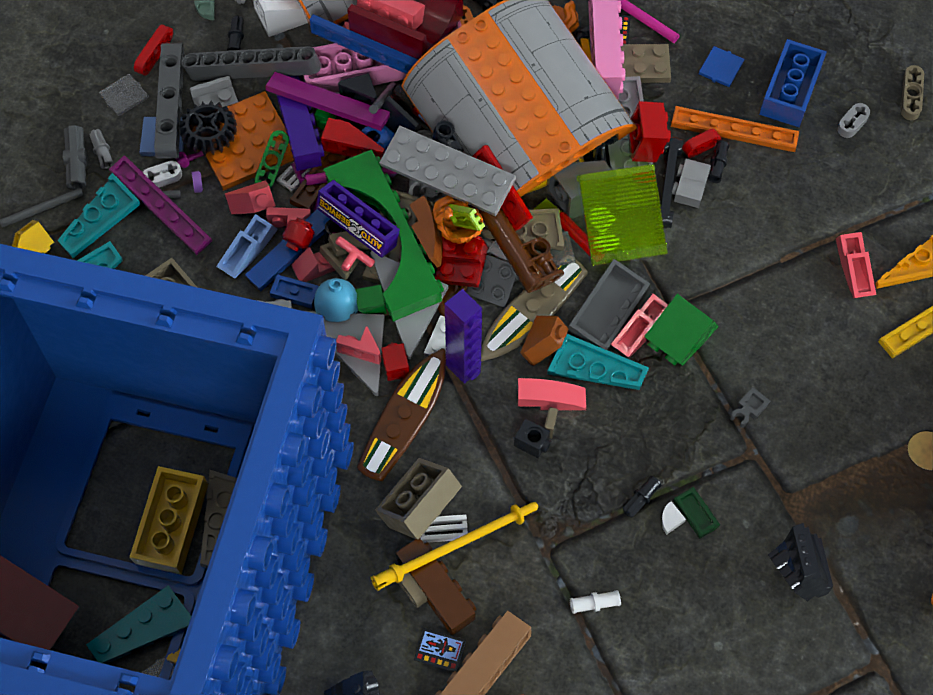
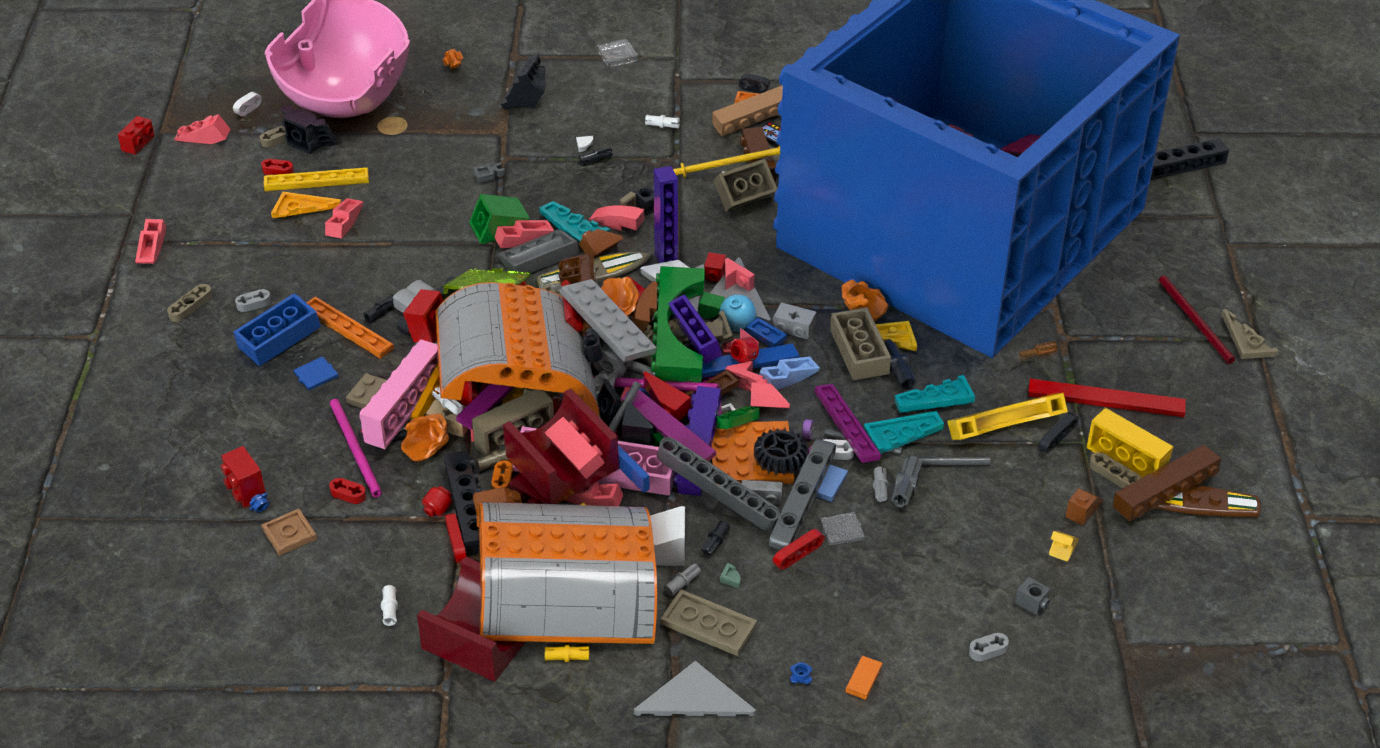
camera: 155 degrees left, 20 degrees down
(354, 253) = (713, 316): coral piece -> none
(403, 416) = (726, 239): reddish brown piece -> none
(466, 217) = (614, 288): lime tile -> none
(696, 512) = (566, 141): dark green tile -> none
(701, 143) = (383, 321): red beam -> none

